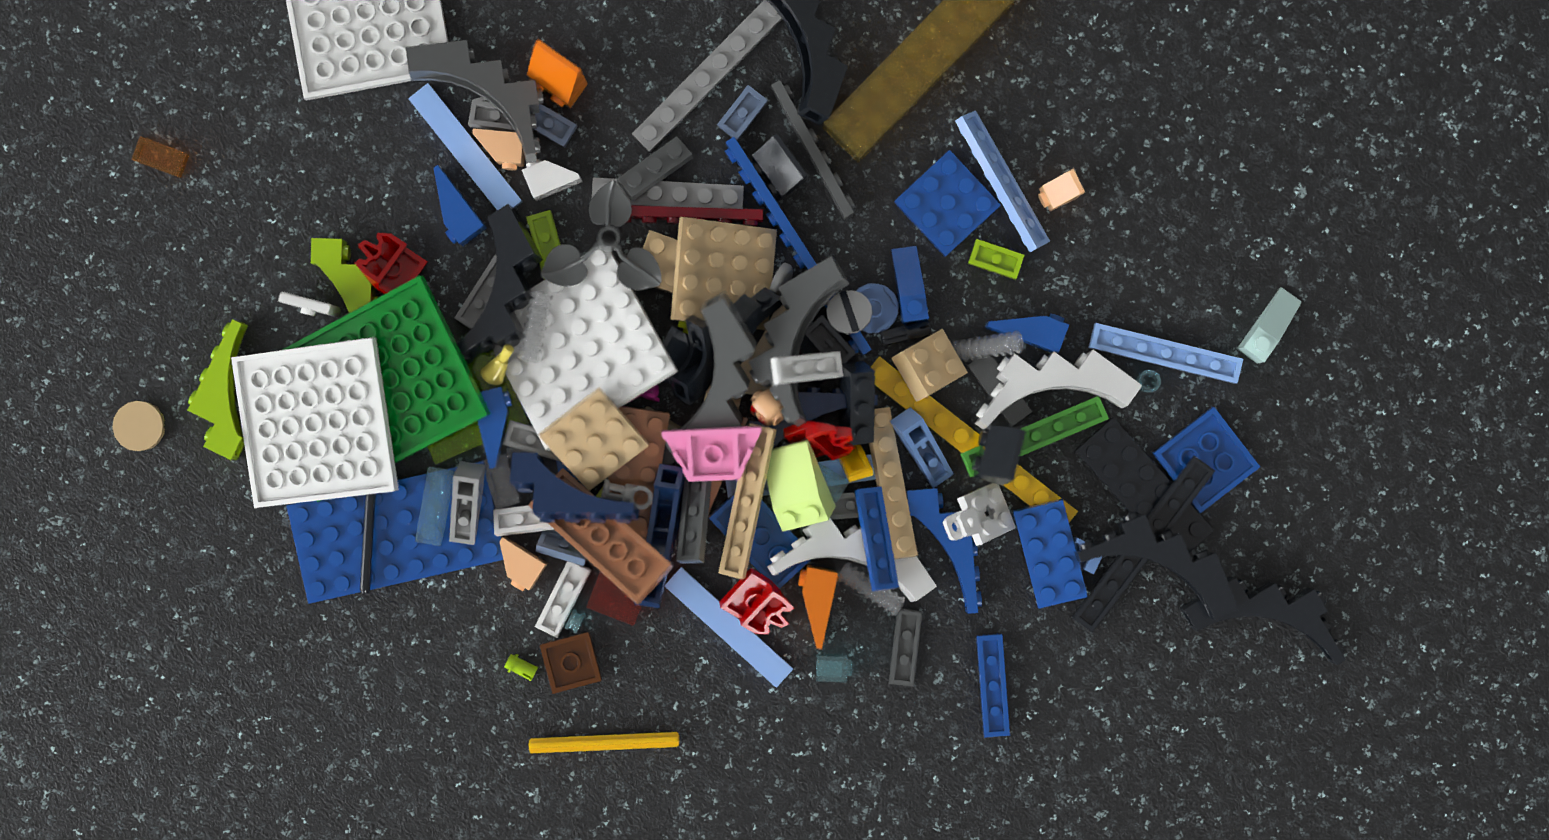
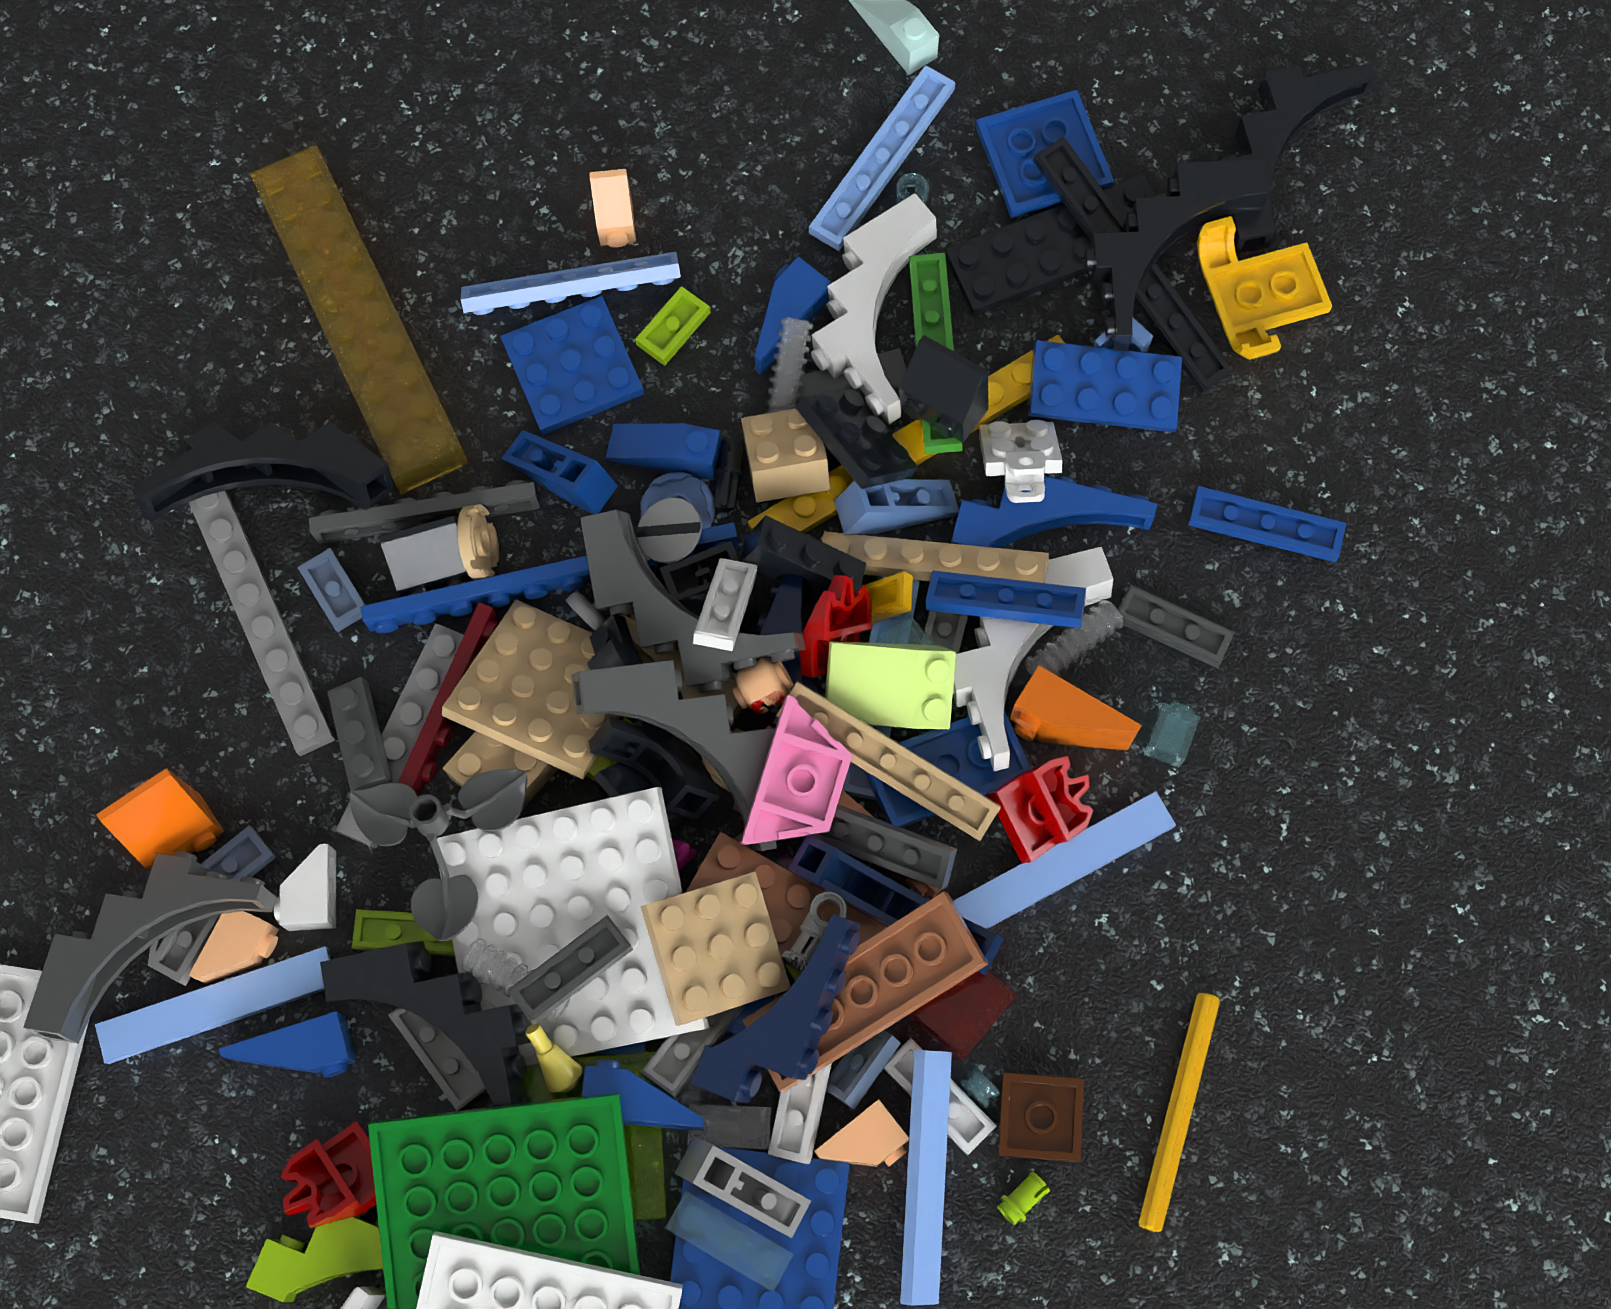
camera: 65 degrees left, 15 degrees down
(512, 607) = (926, 1178): none -> light blue tile
(549, 358) = (570, 970): none -> dark grey tile
(801, 193) = (477, 542): none -> tan tile
(870, 224) = (561, 471): none -> blue slope
(953, 407) = (856, 437): none -> black plate
(1154, 632) = (1258, 290): none -> yellow piece

